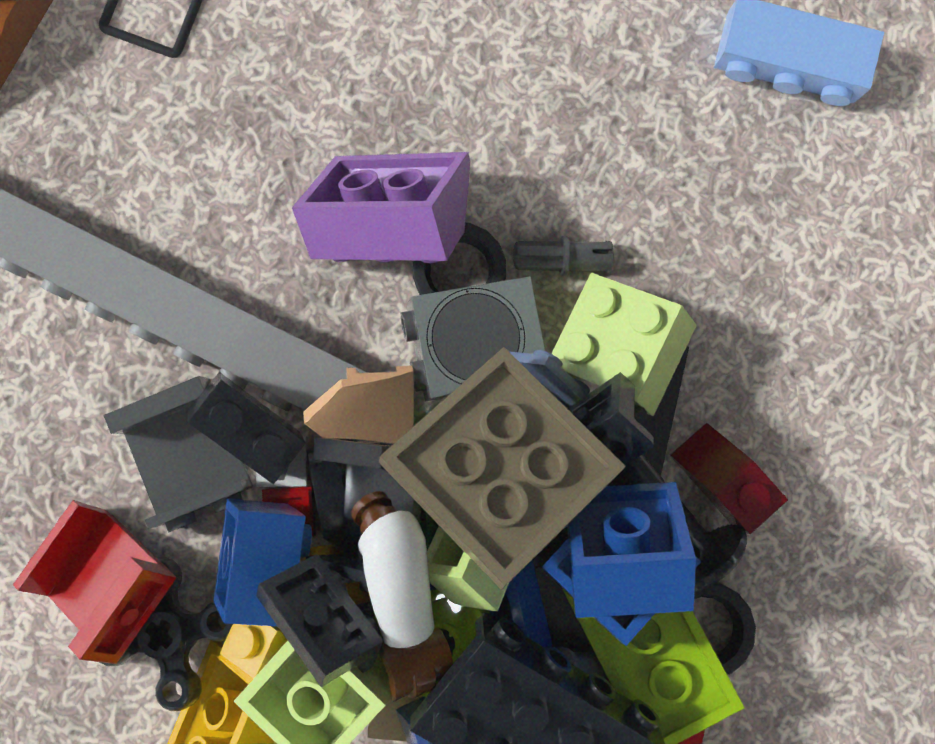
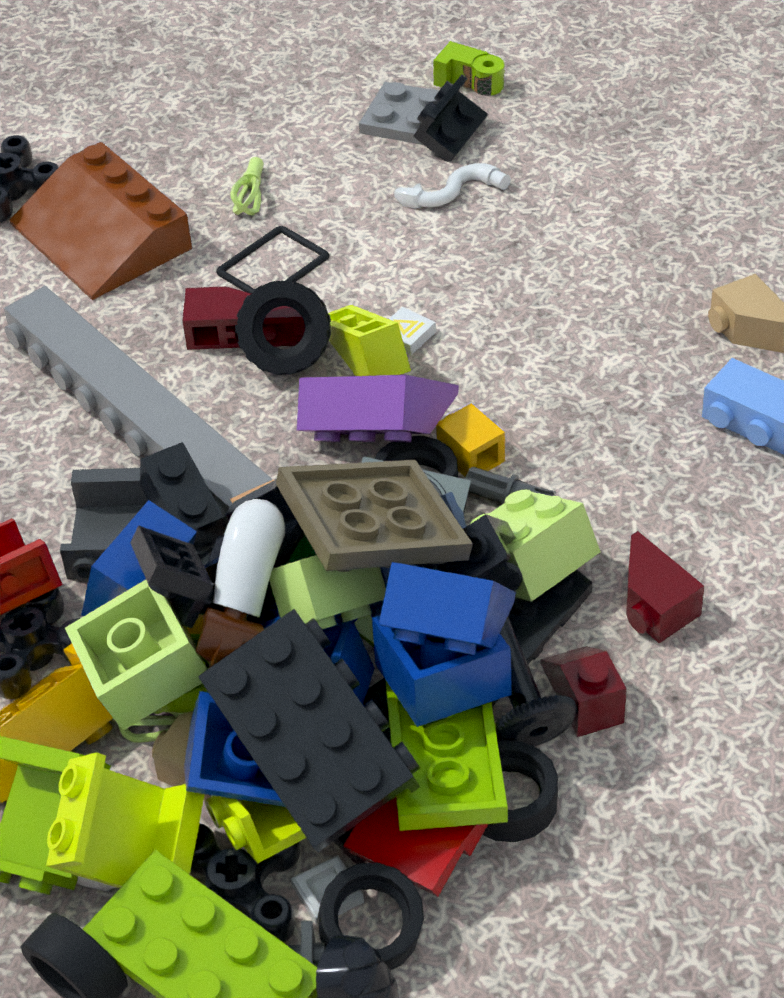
camera: 25 degrees right, 40 degrees down
(156, 112) = (212, 317): none -> dark red slope
(225, 85) = (251, 335): none -> black tyre
(322, 94) = (368, 342): none -> neon yellow slope
(357, 52) = (413, 328): none -> white tile
(499, 204) = (473, 439): none -> yellow brick
(757, 340) = (660, 591): none -> dark red slope

